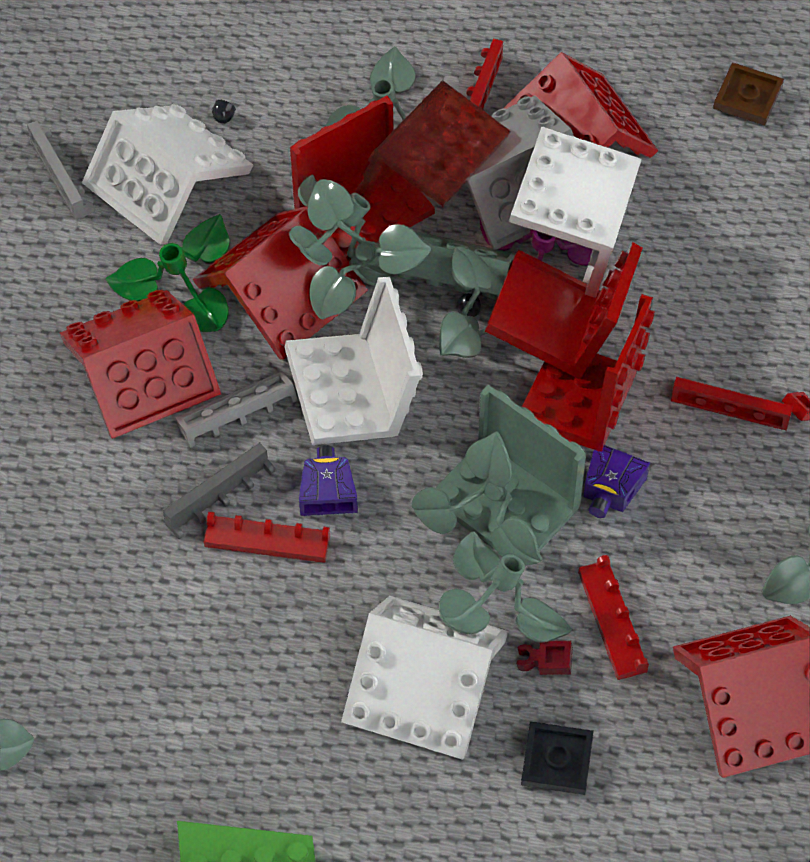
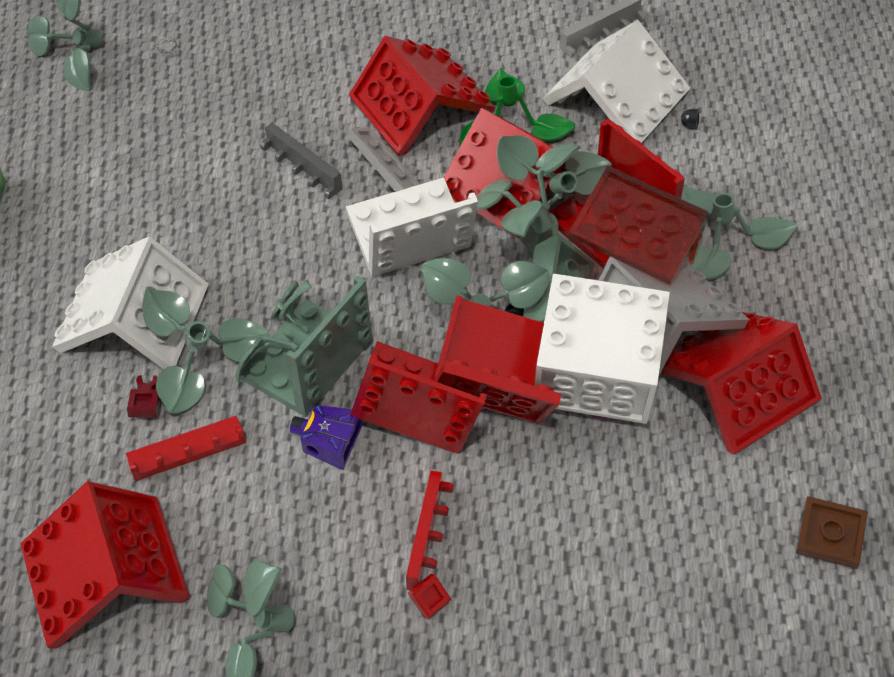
camera: 85 degrees right, 5 degrees down
(267, 538) = (261, 199): red hinge -> none
(327, 485) = (311, 227): dark purple torso -> none
(486, 73) = (772, 297): red hinge -> none
(557, 758) = (46, 412): black plate -> none

